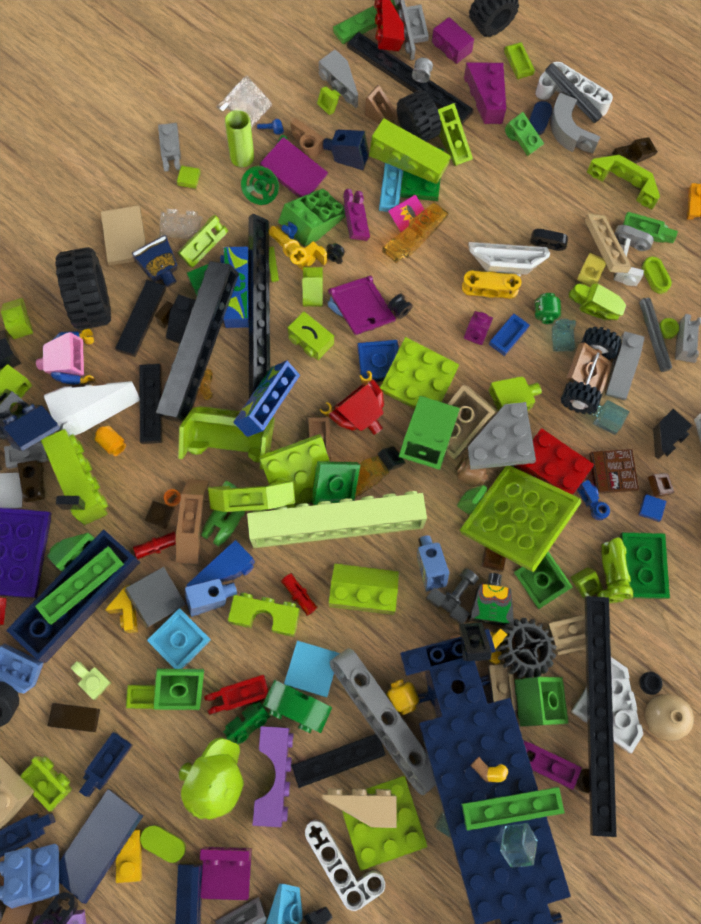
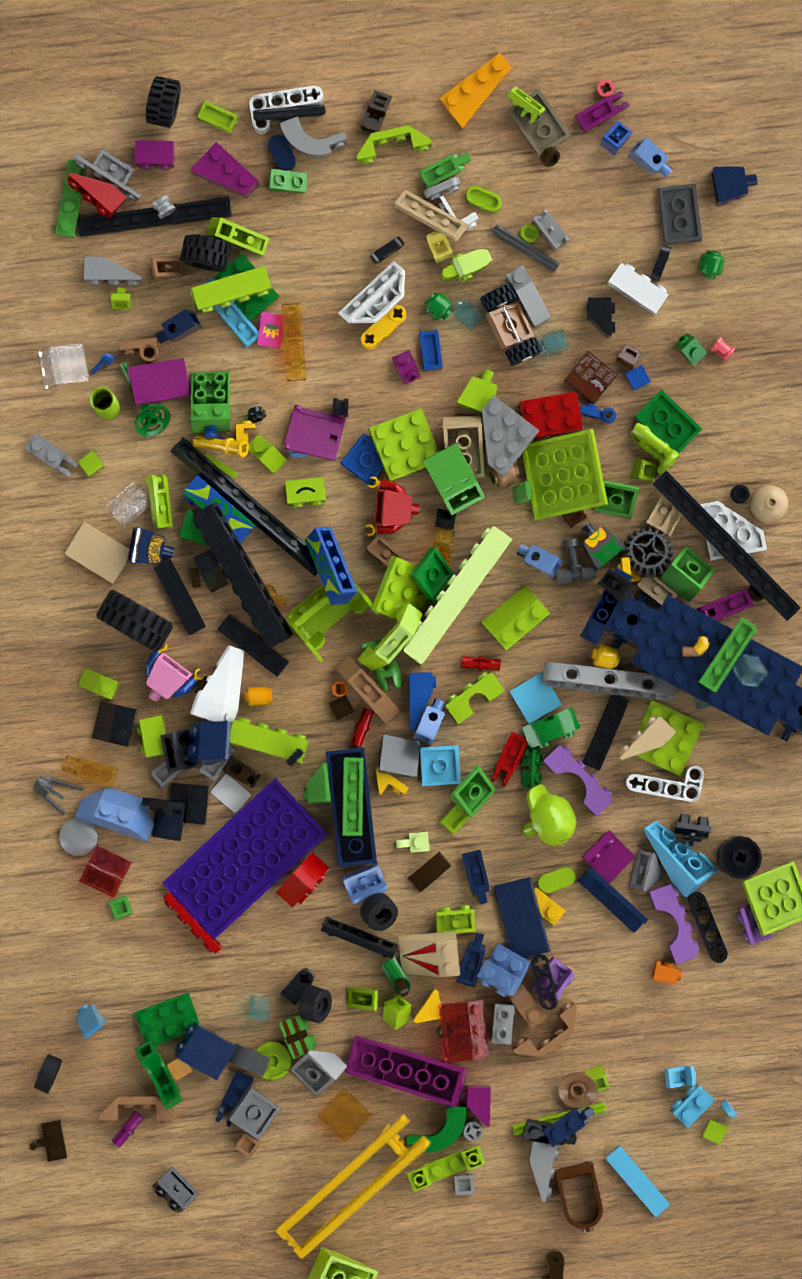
camera: 50 degrees left, 15 degrees up
(356, 215) = (238, 371): magenta hinge -> none

